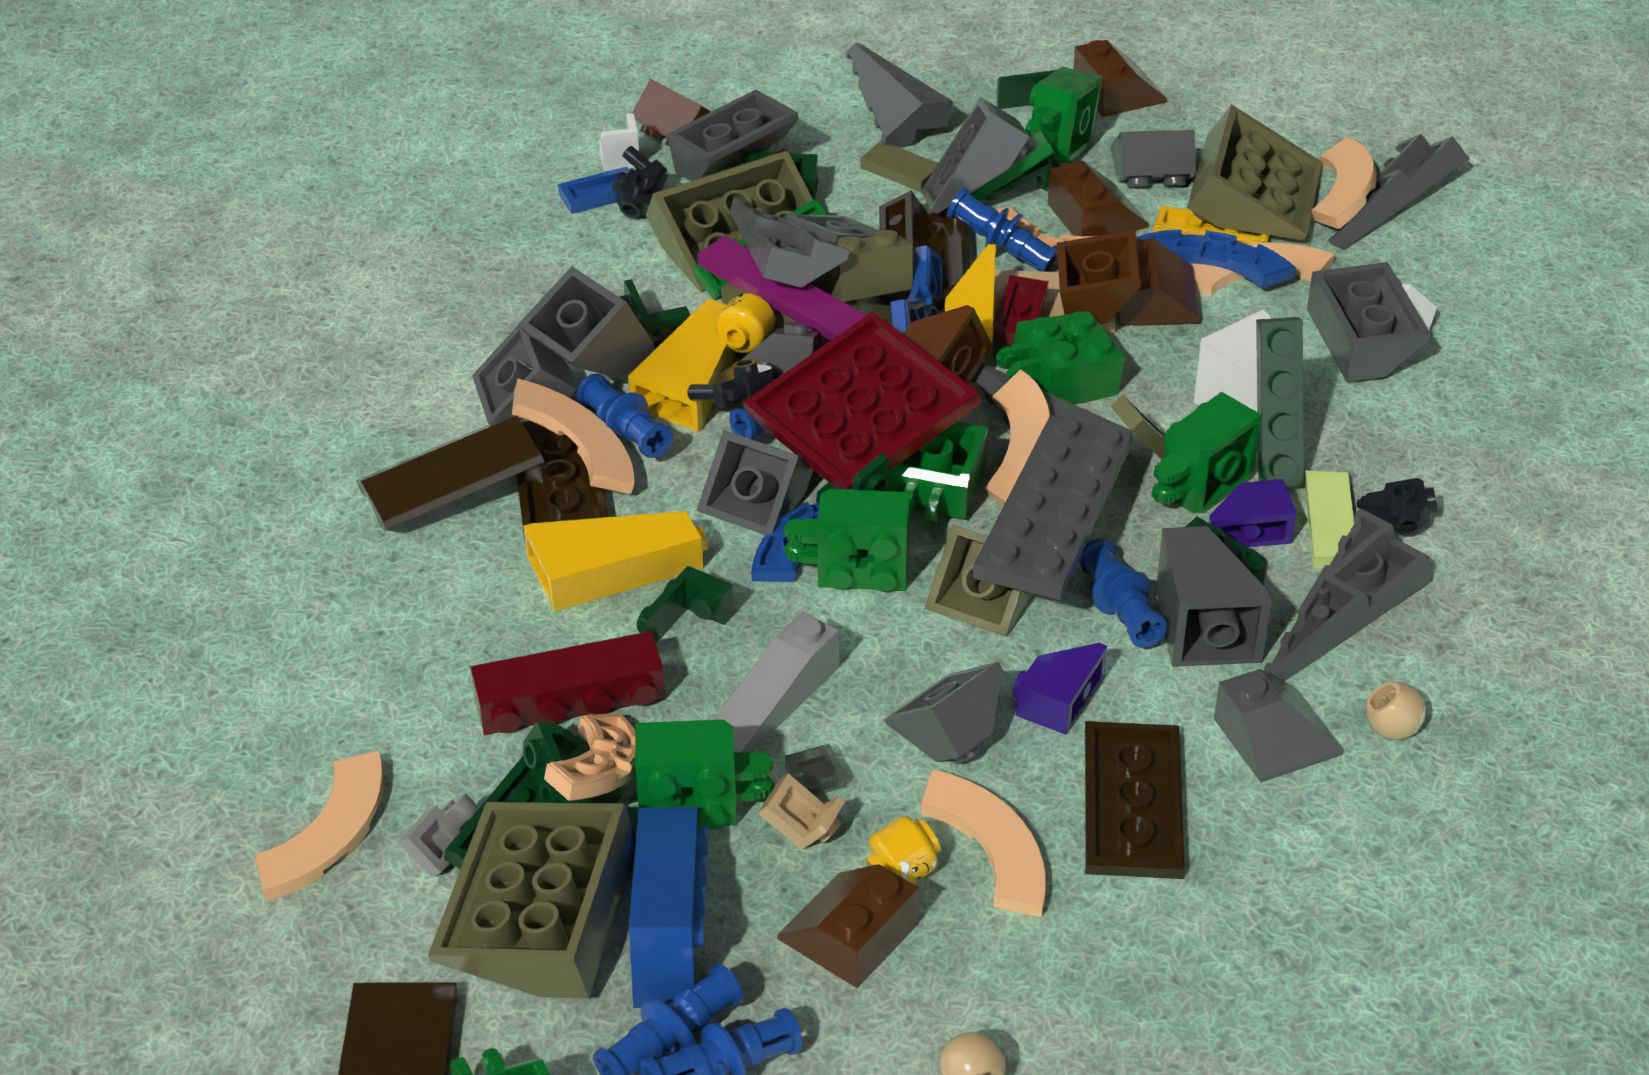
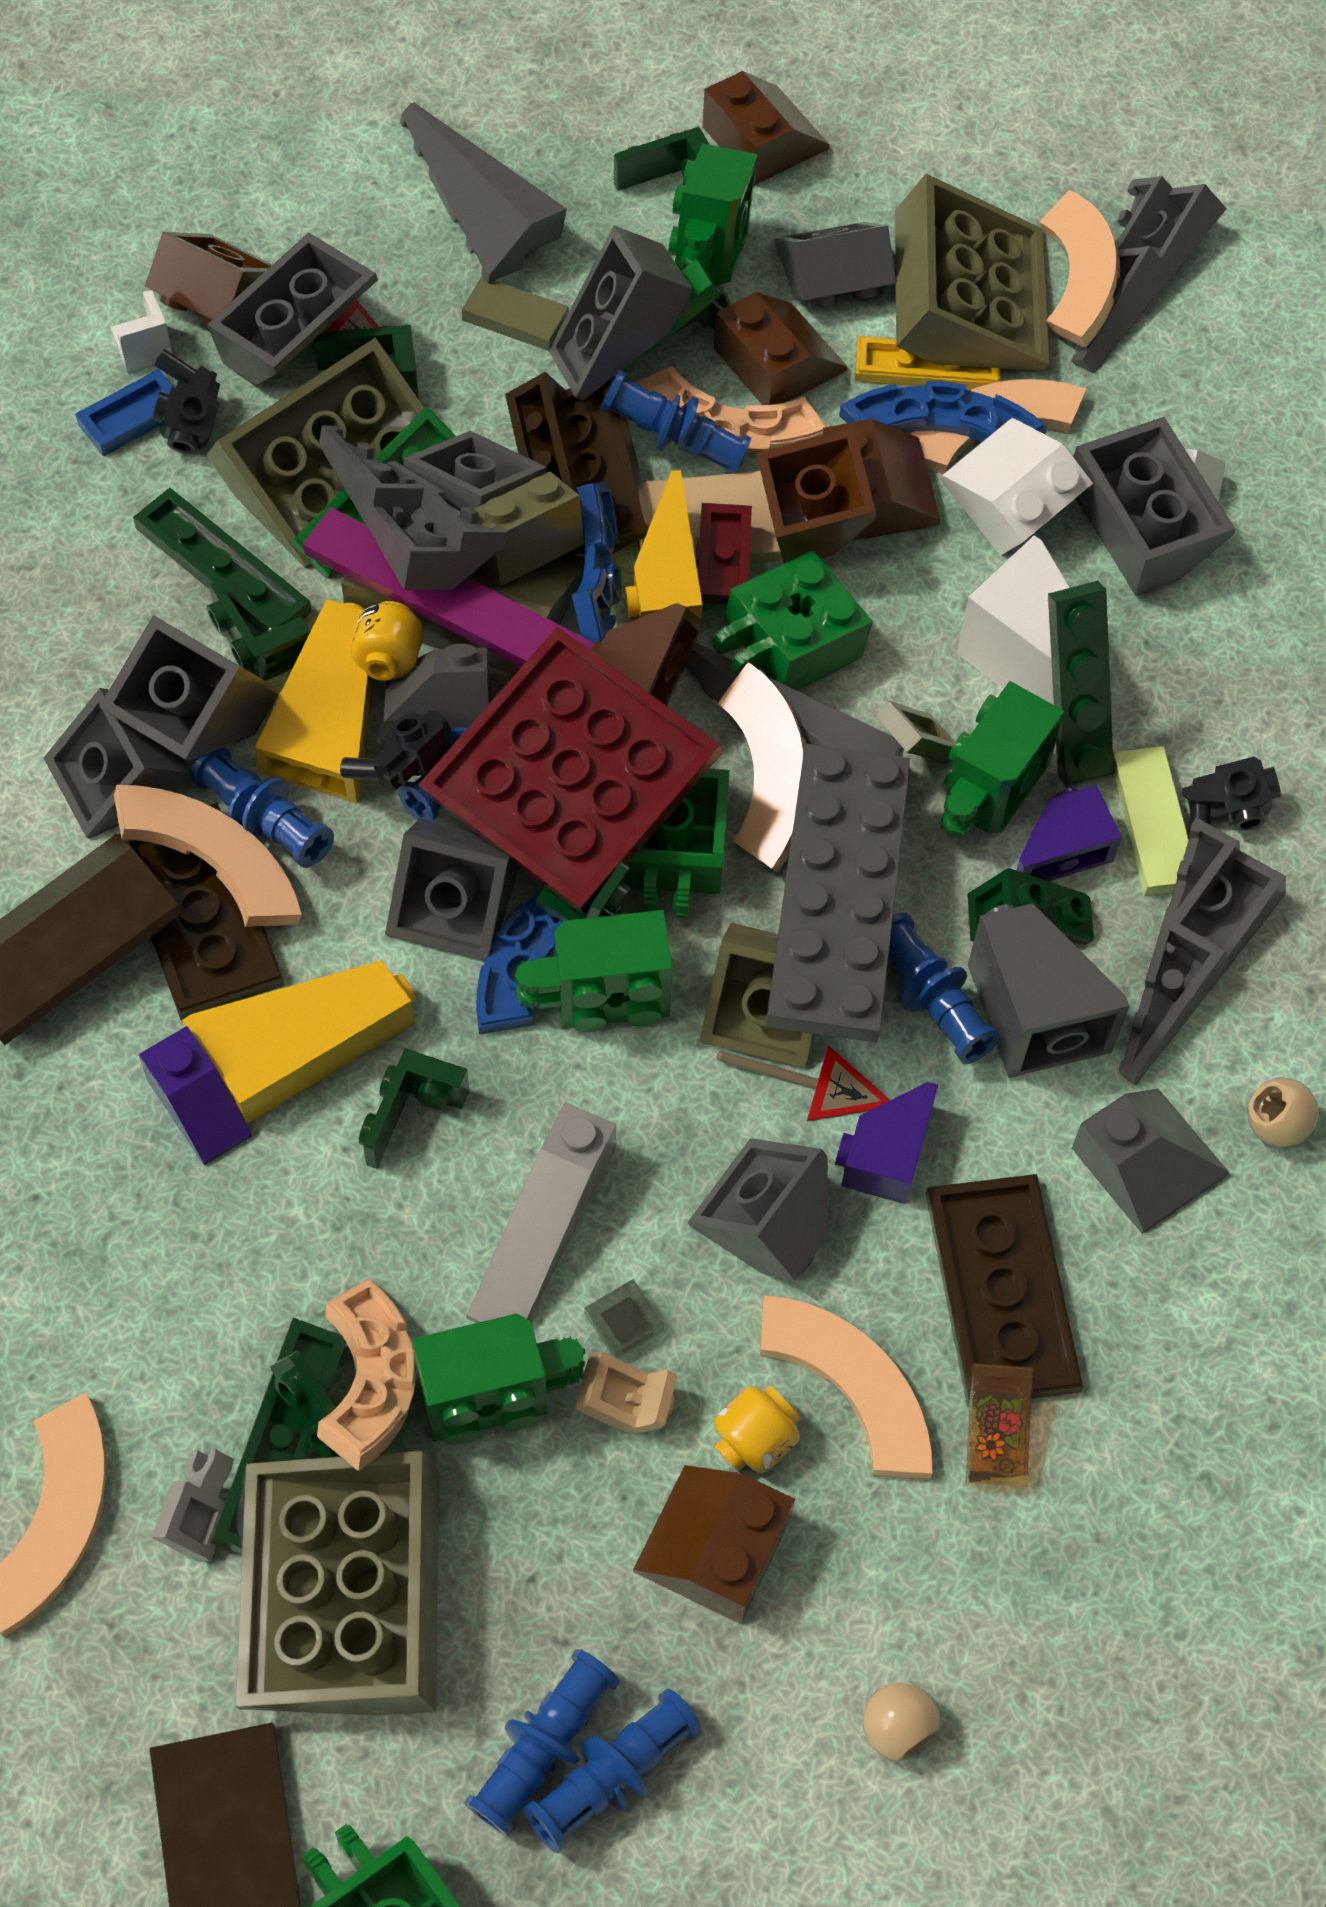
camera: 15 degrees left, 20 degrees up
(519, 578) = (194, 1095): none -> dark purple slope
(568, 683) = (296, 1249): dark red brick -> none
(622, 262) = (214, 555): none -> dark green plate
(667, 902) = (498, 1562): blue wedge -> none
(1021, 653) = (837, 1090): none -> piece
(1106, 882) = (999, 1425): none -> clear orange tile
(1265, 285) = (1015, 483): none -> white slope

